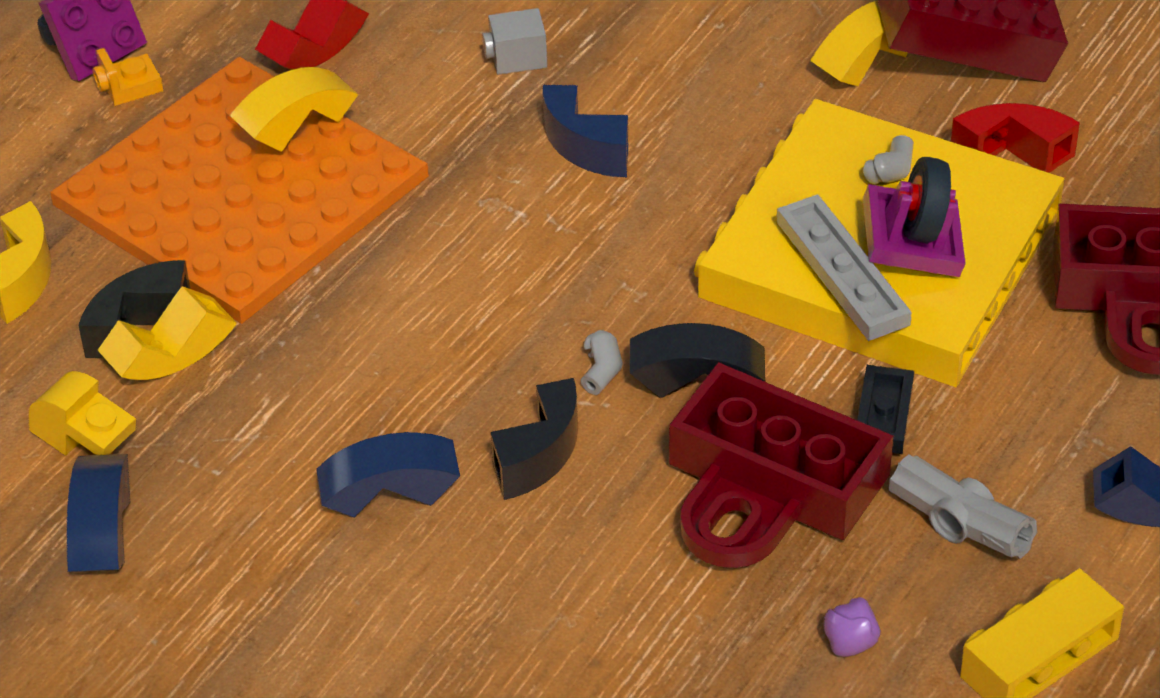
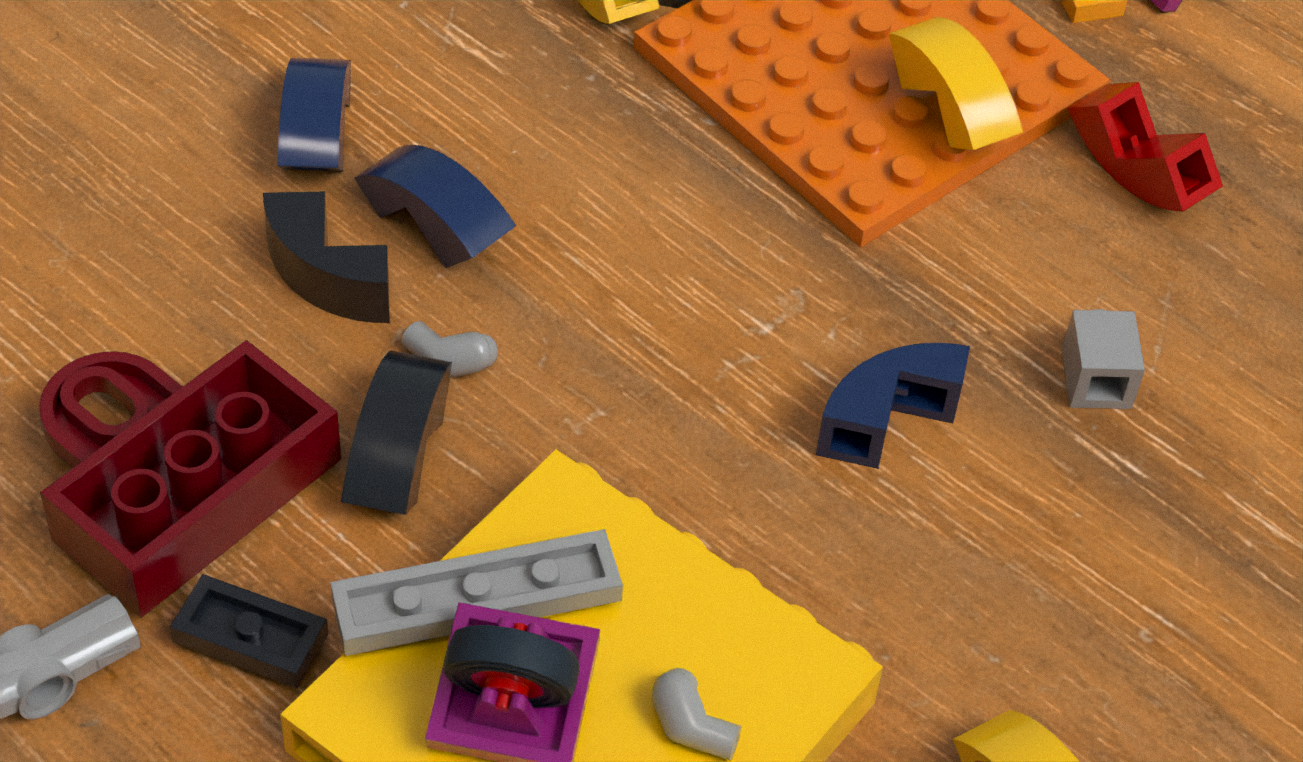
camera: 95 degrees right, 5 degrees up
(455, 390) = (441, 196): none -> dark blue brick

